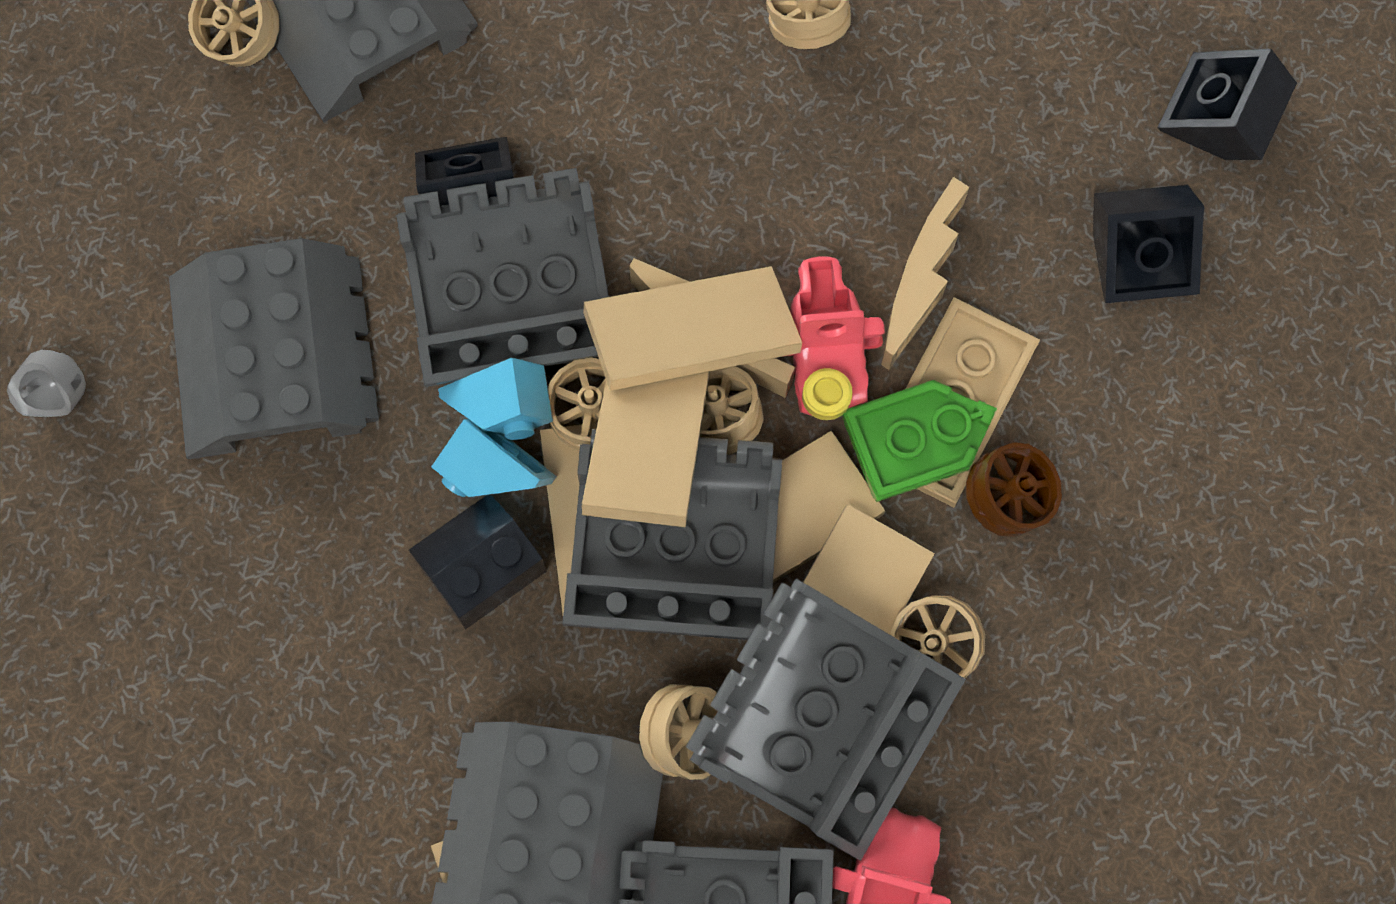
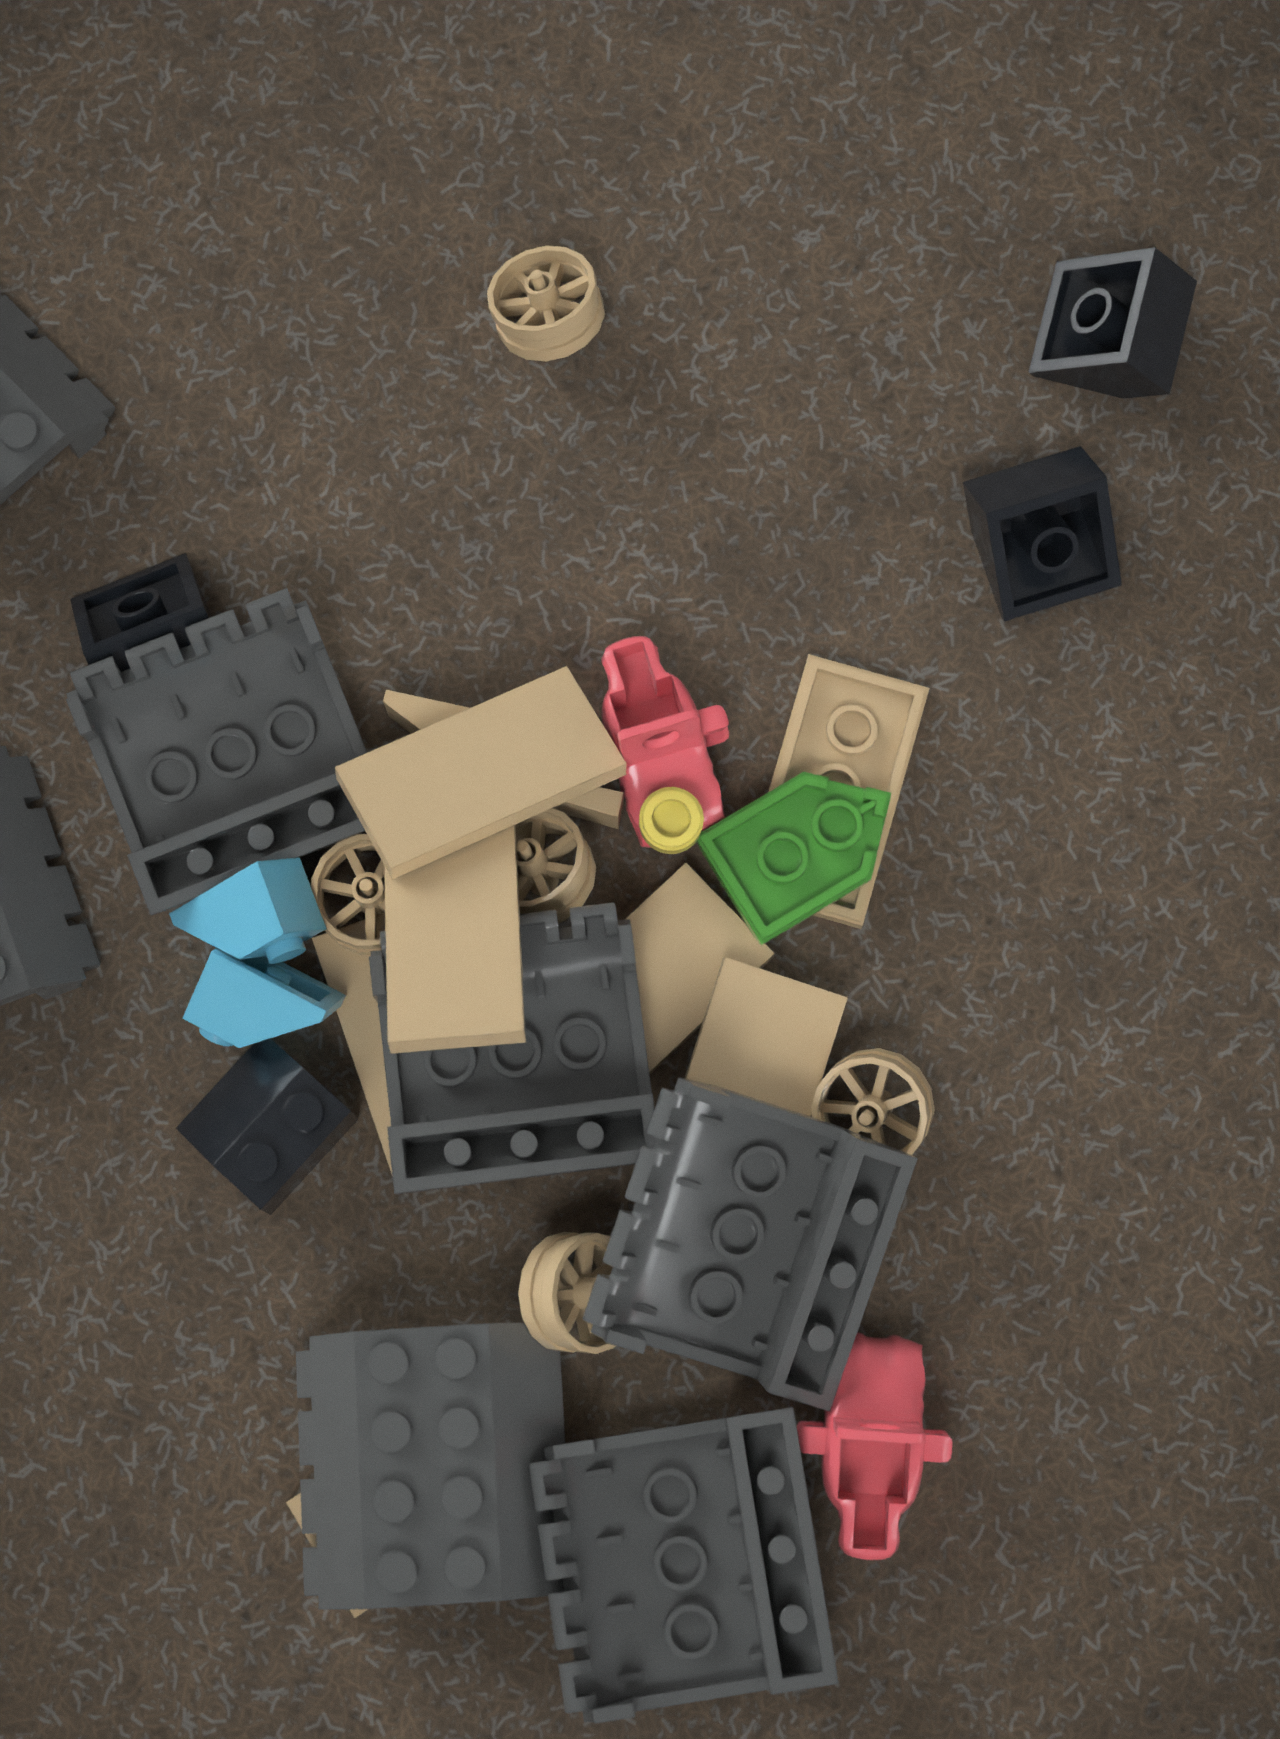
camera: 10 degrees left, 5 degrees up
(920, 284) = (761, 648): tan slope -> none
(1031, 474) = (932, 894): reddish brown wheel -> none

